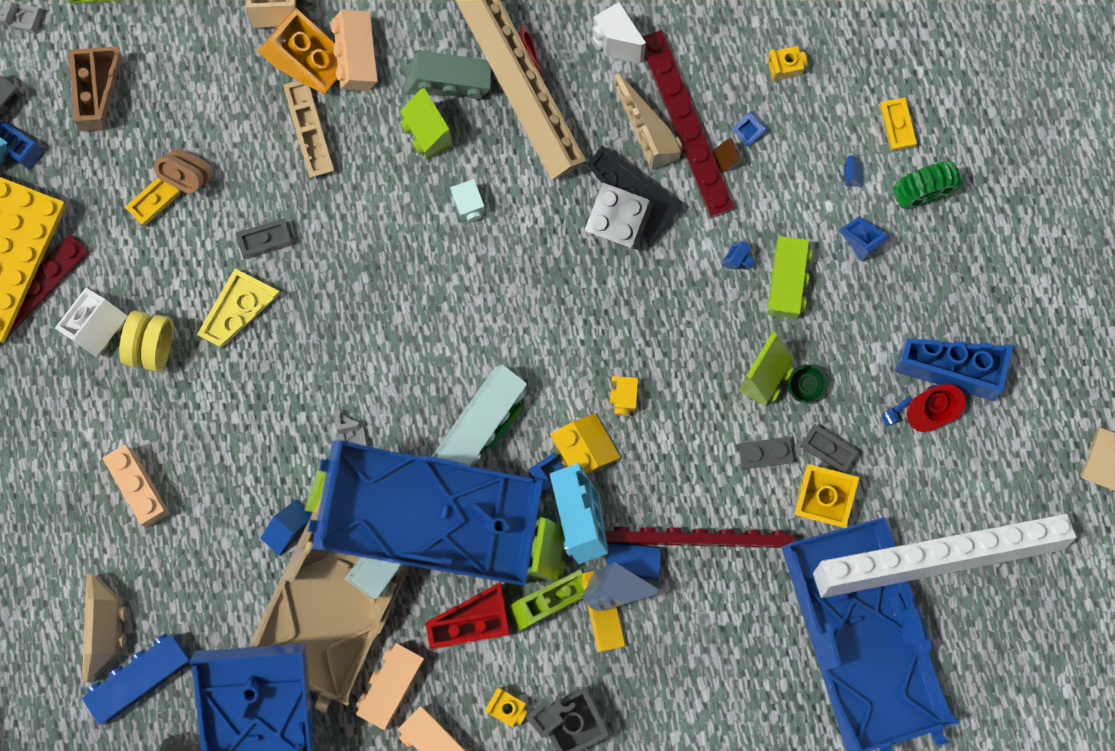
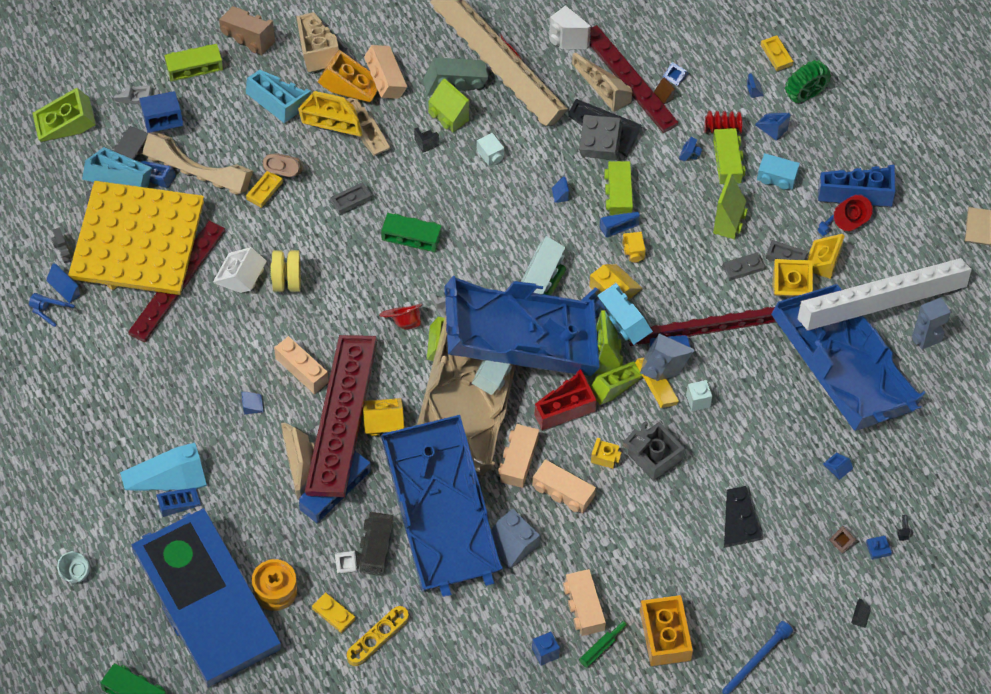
camera: 15 degrees left, 20 degrees down
(33, 115) = (164, 149): none -> tan arch
(39, 56) = (161, 111): none -> blue brick
(61, 526) = (252, 403): none -> slope
(93, 83) = (202, 123): medium nougat wedge -> none
(166, 581) = (341, 416): none -> dark red plate
(202, 61) = (276, 96): none -> medium azure wedge
(226, 584) = (383, 416): none -> yellow slope
(236, 307) = (342, 244): light yellow wing -> none
(265, 108) = (330, 113): none -> yellow wedge
(286, 527) = (415, 374): blue slope -> none
(288, 435) = (404, 317): none -> red piece
(331, 308) = (411, 232): none -> green brick
(386, 166) = (426, 140): none -> black panel
(547, 284) = (561, 191): none -> blue slope
(612, 353) = (618, 223): none -> blue slope
(625, 299) = (618, 187): none -> lime brick
(653, 647) = (699, 395): none -> light aqua brick
(780, 68) = (689, 29): yellow brick -> none
(795, 222) = (723, 121): none -> red piece
(811, 380) = (759, 216): dark green hair -> none
(850, 317) = (778, 171): none -> medium azure brick
(880, 462) = (825, 254): none -> yellow slope
(997, 614) = (927, 327): none -> sand blue arch

